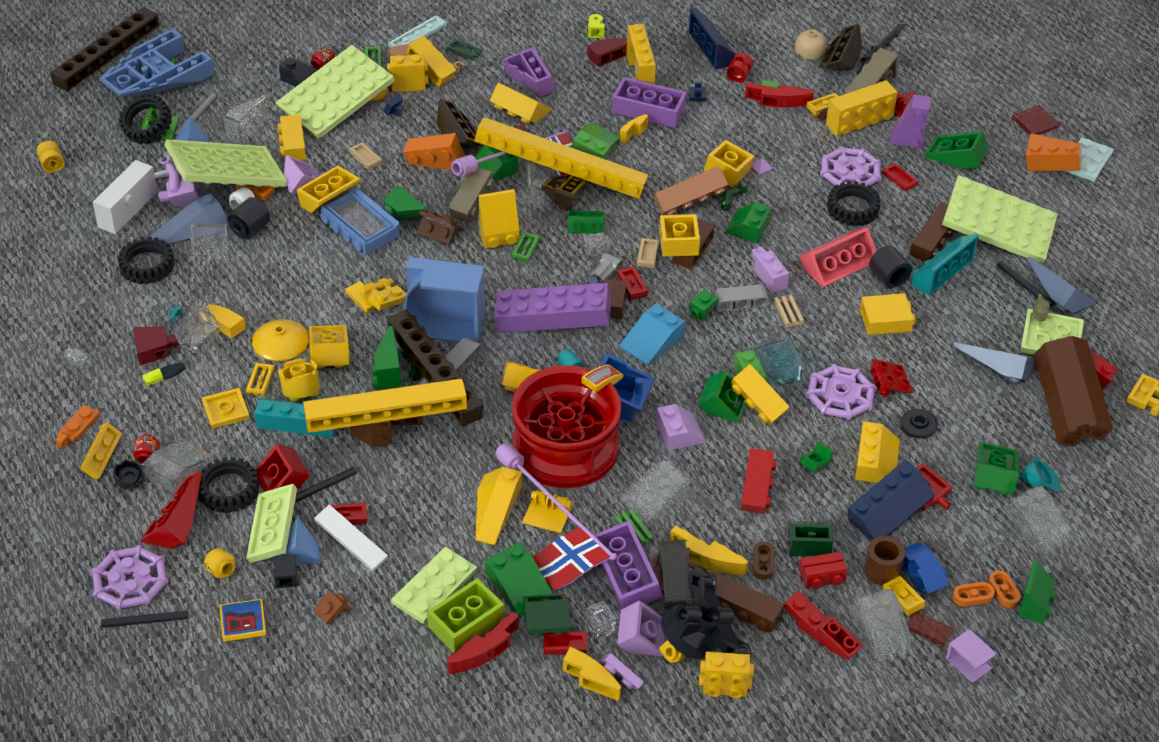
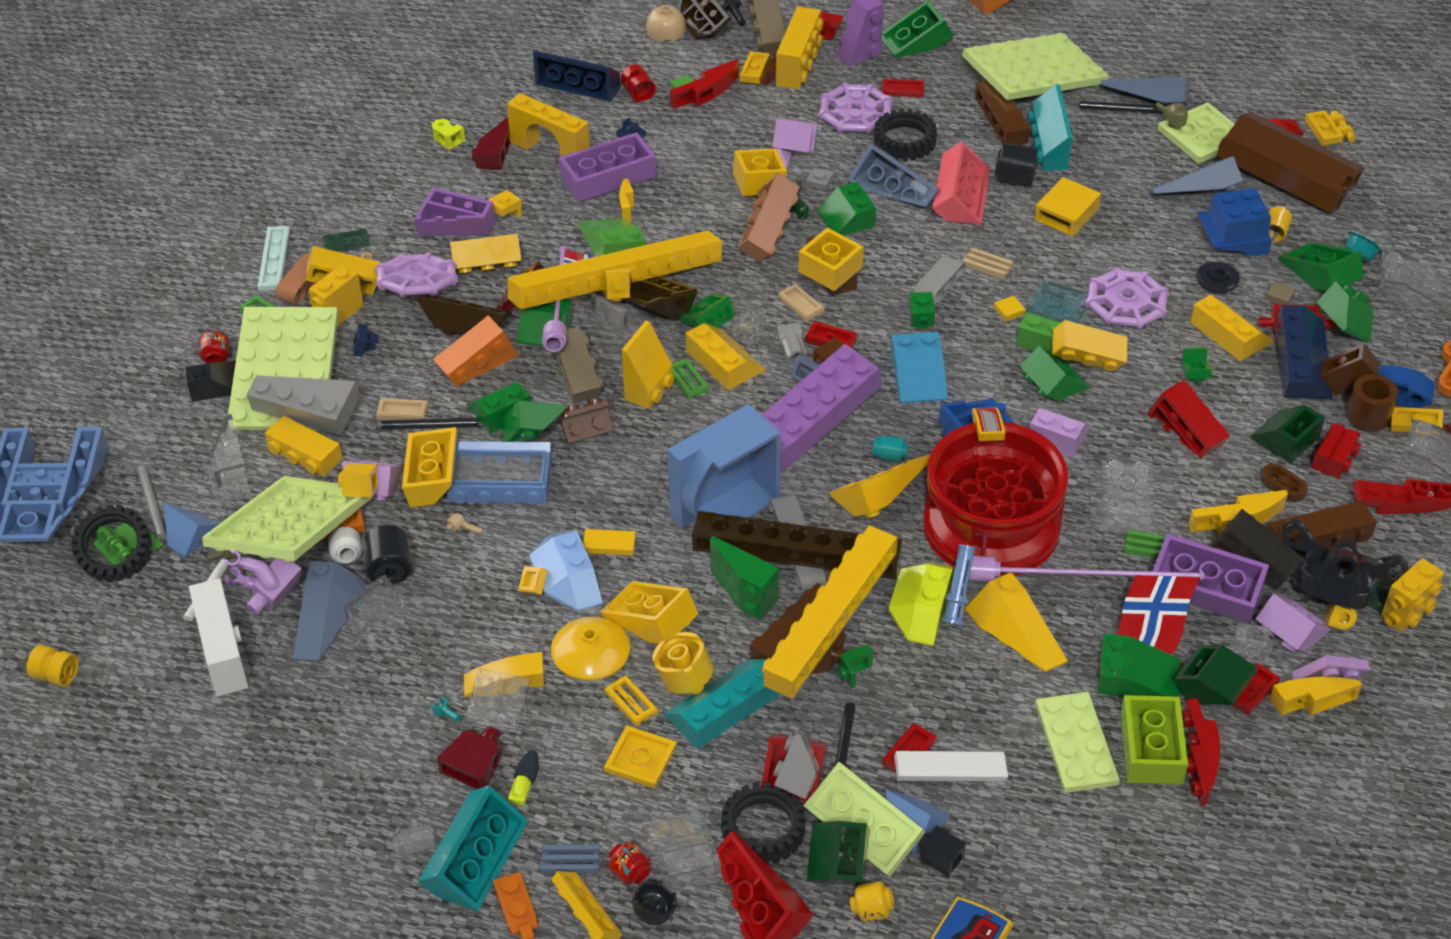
camera: 45 degrees left, 0 degrees up
(95, 384) = (474, 849): none -> teal slope
(121, 417) = (570, 854): none -> sand blue tile
(149, 274) = (339, 707): black tyre -> none
(236, 529) = (838, 853): none -> dark green slope
(271, 468) = (799, 768): none -> light grey slope
(281, 170) = (359, 480): none -> yellow brick
(297, 284) = (533, 580): none -> yellow tile
(308, 230) = (457, 521): none -> tan hand
(317, 115) = (309, 401): none -> light grey wedge
(321, 293) = (570, 571): none -> light blue wedge
(331, 606) = (1029, 843): dark orange bracket -> none
(368, 172) = (429, 423): none -> black bar
(384, 450) = (854, 661): none -> green bracket
(385, 298) = (633, 522): yellow plate -> none
(416, 187) = (495, 405): none -> green slope
(461, 88) = (416, 274): none -> lavender plate
(466, 451) = (920, 600): none -> neon yellow wedge
(476, 462) = (956, 598): none -> medium blue pin
(545, 165) = (617, 284): none -> yellow bracket
(545, 513) = (1067, 593): yellow hinge -> none
(560, 247) = (721, 355): none -> yellow slope
(565, 84) = (507, 203): none -> yellow bracket
(759, 340) = (1009, 308): none -> yellow tile
(765, 194) = (819, 178): none -> light grey plate
(770, 269) = (926, 237): lavender hinge -> none
(781, 155) = (794, 135): none -> lavender piece
(803, 219) = (891, 178): none -> sand blue wedge
(889, 377) = (1152, 258): red hinge -> none
(901, 528) = (1345, 368): none -> reddish brown brick
(944, 462) = (1280, 293): none -> dark tan tile
(958, 501) = (1349, 310): none -> green slope
(972, 400) = (1238, 222): none -> blue piece
(1007, 421) = (1282, 218): none -> yellow piece

